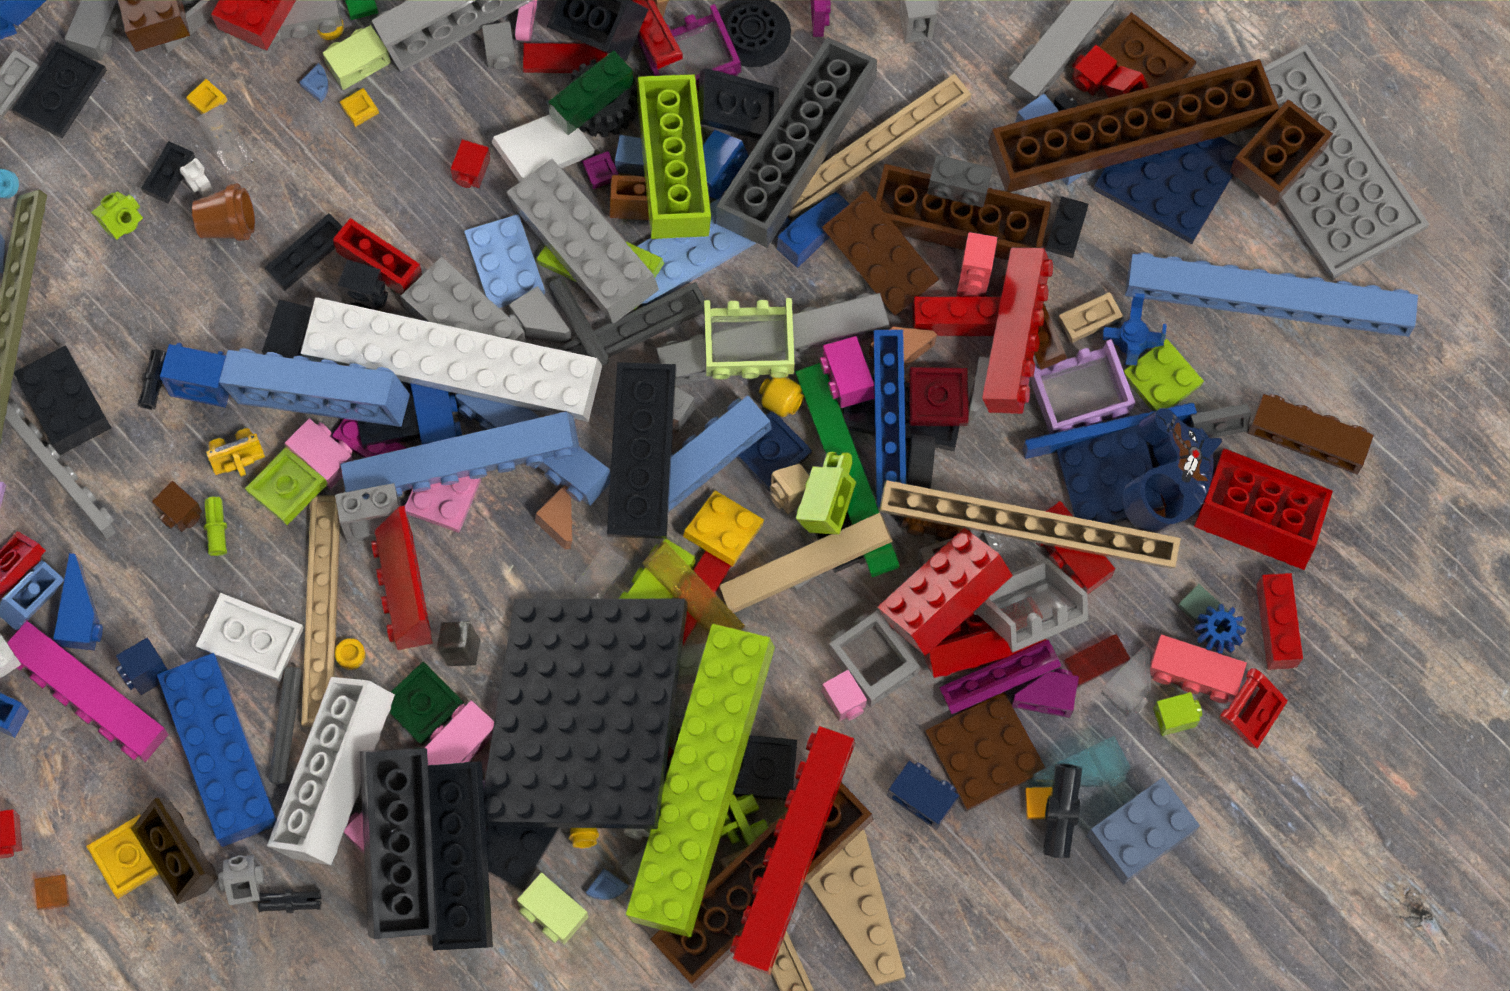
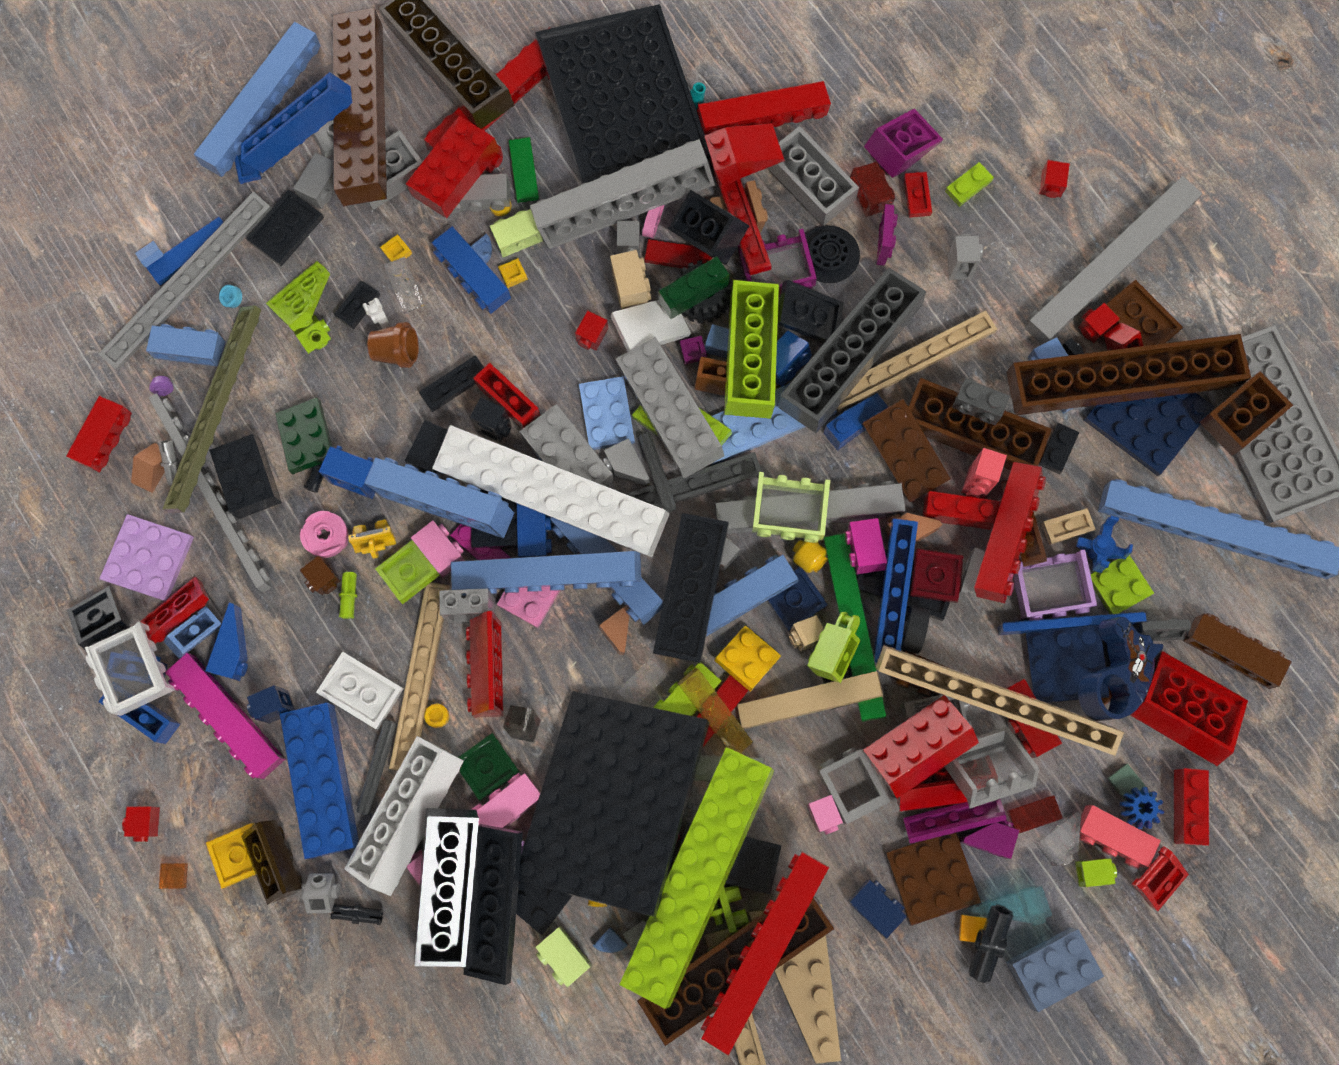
camera: 15 degrees right, 5 degrees up
(96, 172) = (299, 298): none -> lime plate
(128, 340) = (304, 435): none -> dark green plate
(179, 441) = (312, 529): none -> bright pink plate
(306, 111) = (471, 270): none -> blue brick
(509, 94) = (630, 279): none -> tan brick

